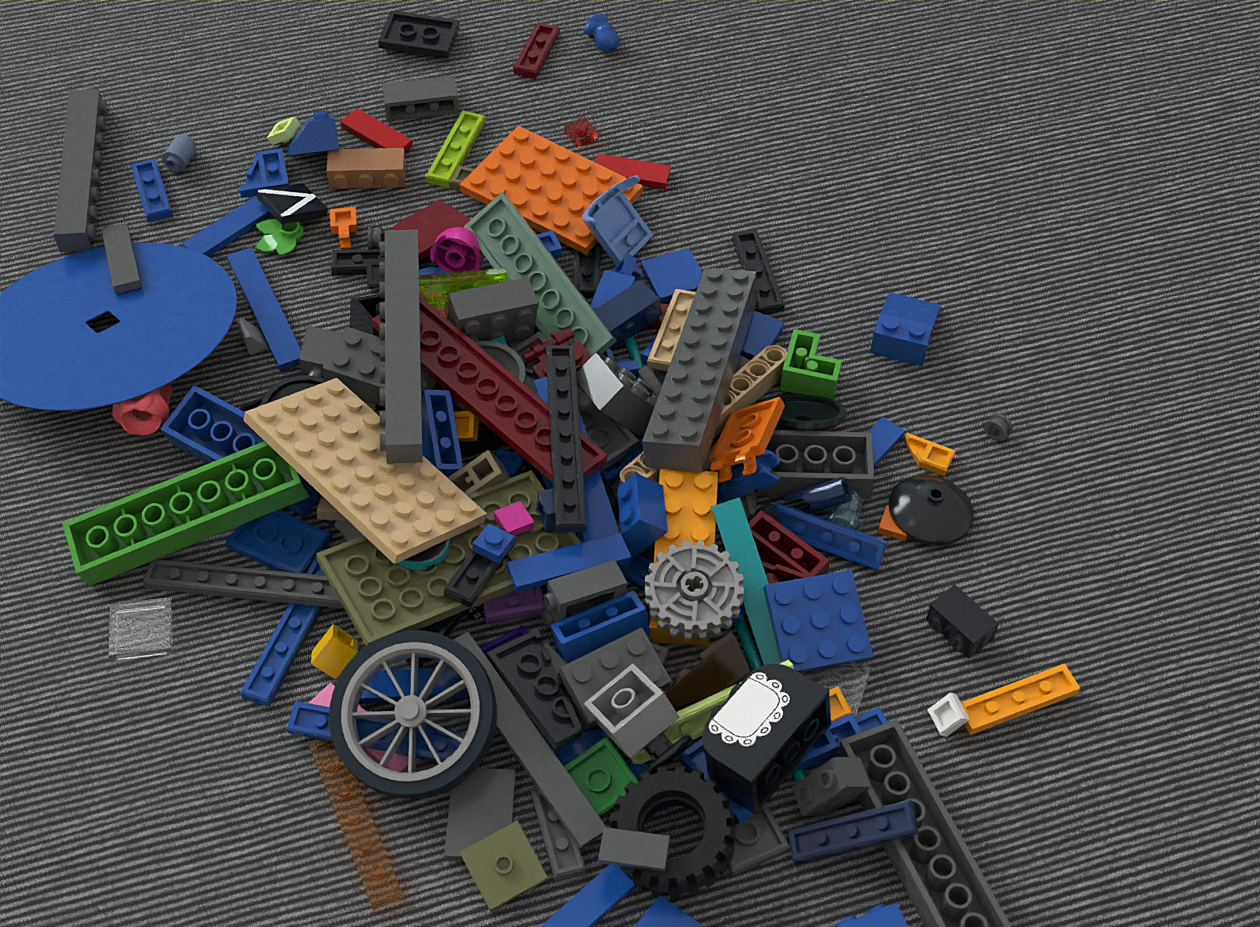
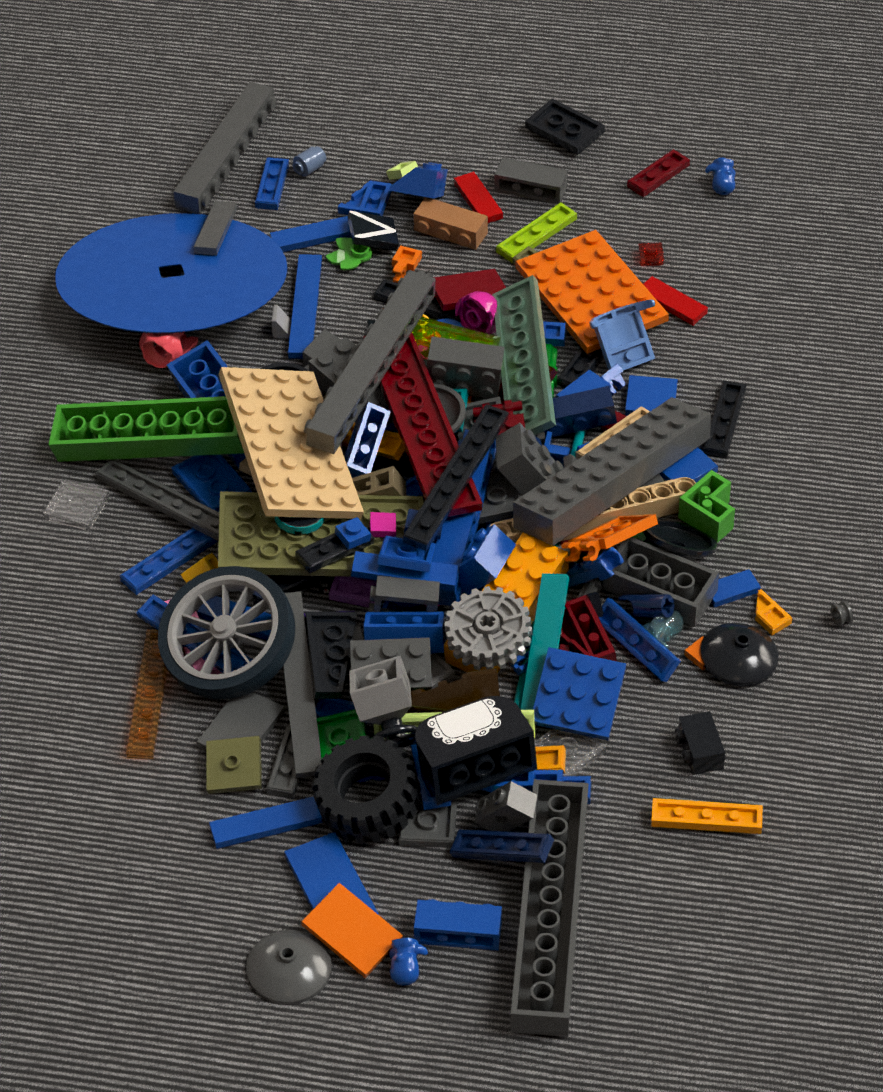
camera: 30 degrees right, 5 degrees down
(560, 548) = (402, 555): none -> blue tile
(634, 849) = (323, 782): dark grey tile -> none
(904, 329) = (818, 507): blue slope -> none
(948, 714) = (641, 803): white tile -> none

